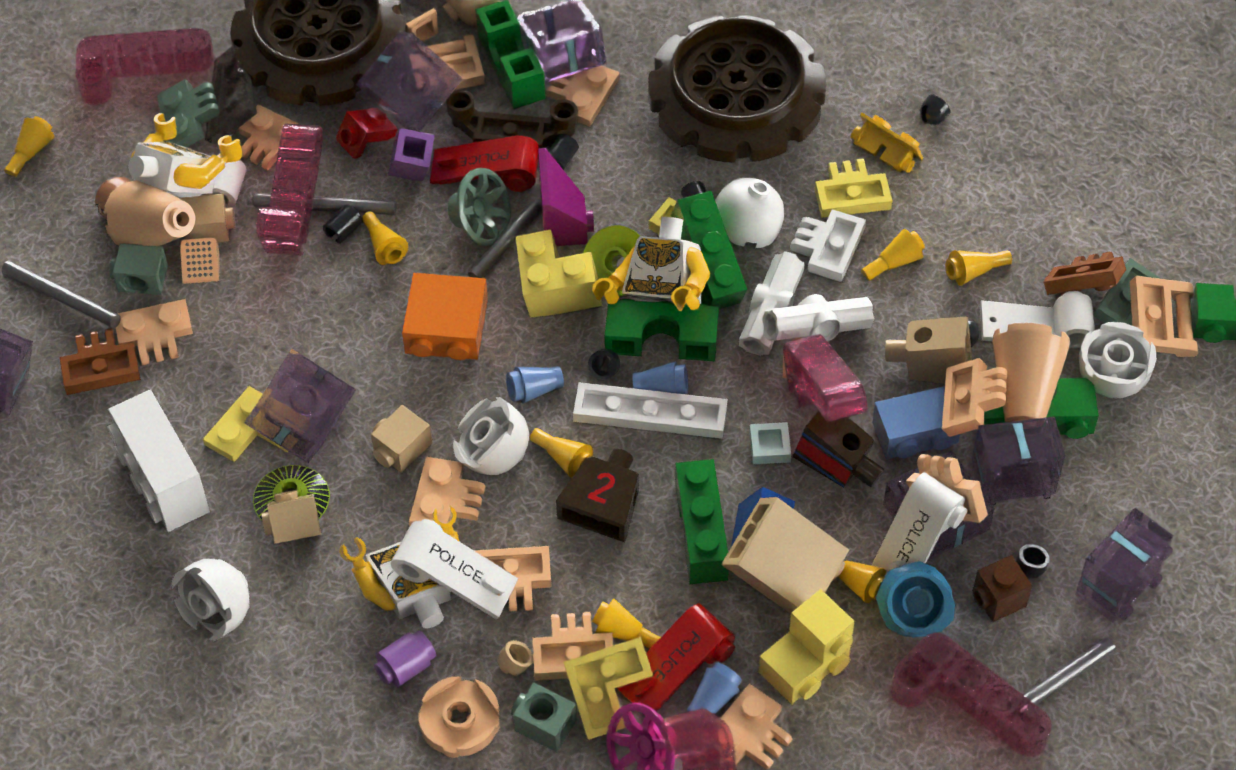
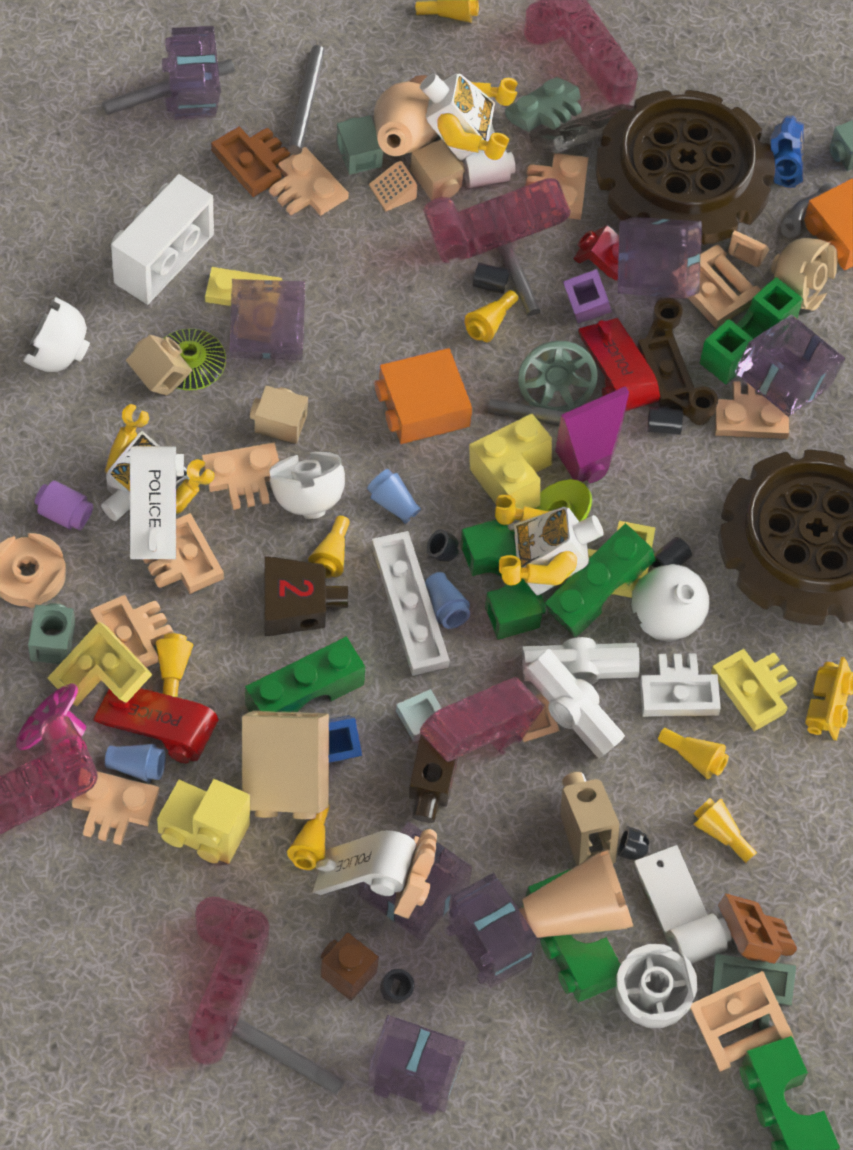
camera: 60 degrees right, 5 degrees up
(518, 662) = (103, 597): tan hinge -> none
(911, 424) = (499, 832): medium blue brick -> none
(915, 600) = (301, 895): dark azure hat -> none
(970, 393) = (529, 855): light nougat hinge -> none

